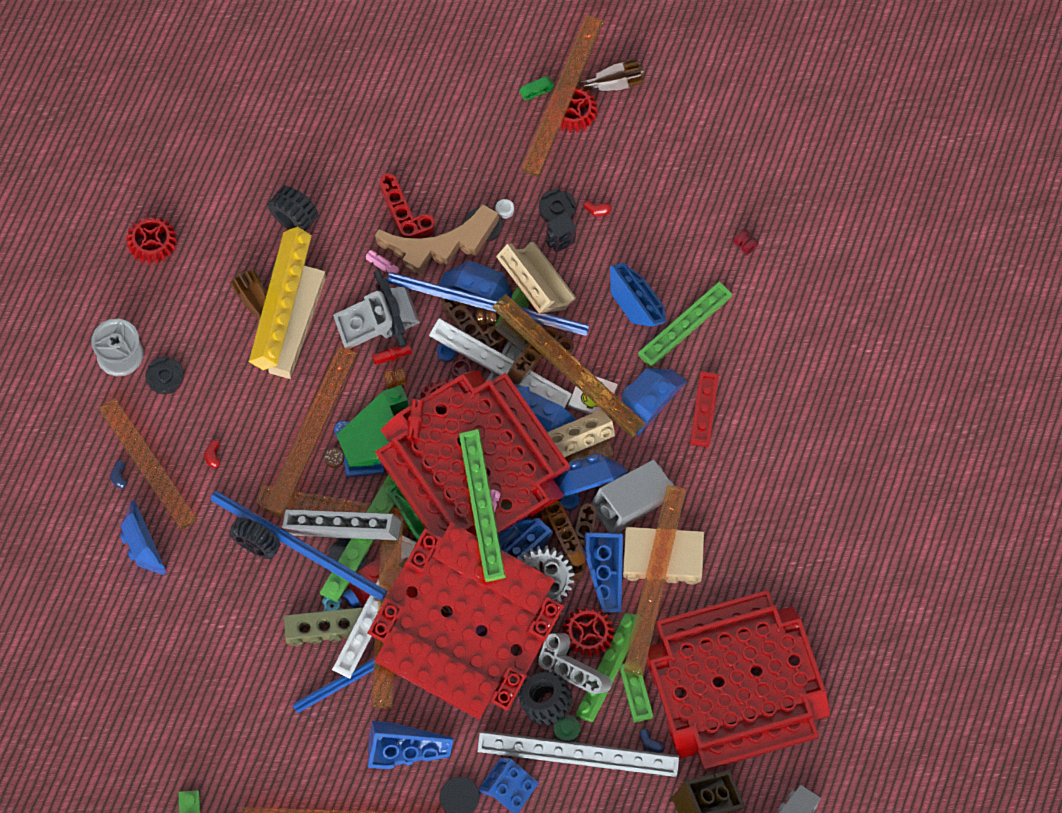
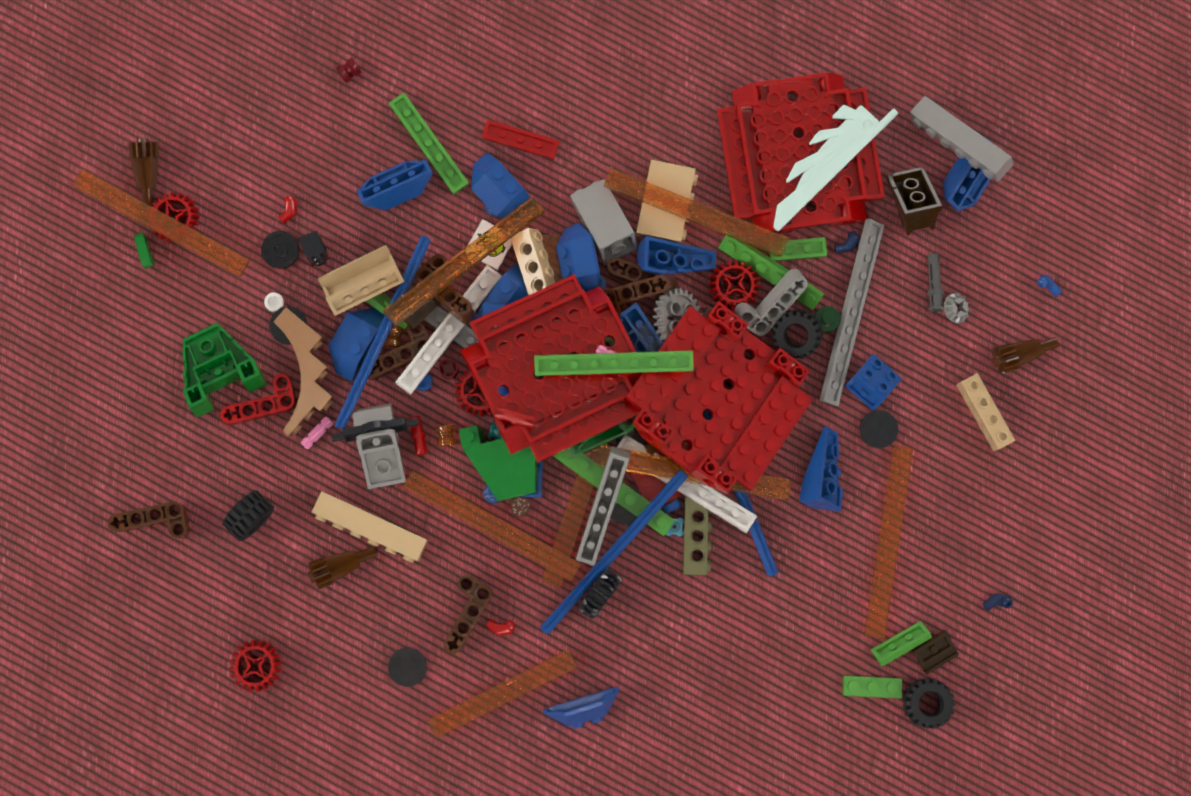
camera: 85 degrees left, 15 degrees up
(116, 476) = (510, 726): dark blue arm -> none
(117, 347) = (362, 707): light grey piece -> none
(219, 419) = (465, 617): none -> reddish brown beam
(279, 128) = (148, 520): none -> reddish brown beam
(280, 298) = (345, 539): yellow brick -> none
(436, 162) = (212, 362): none -> green wedge
(741, 710) = (838, 150): none -> light aqua animal

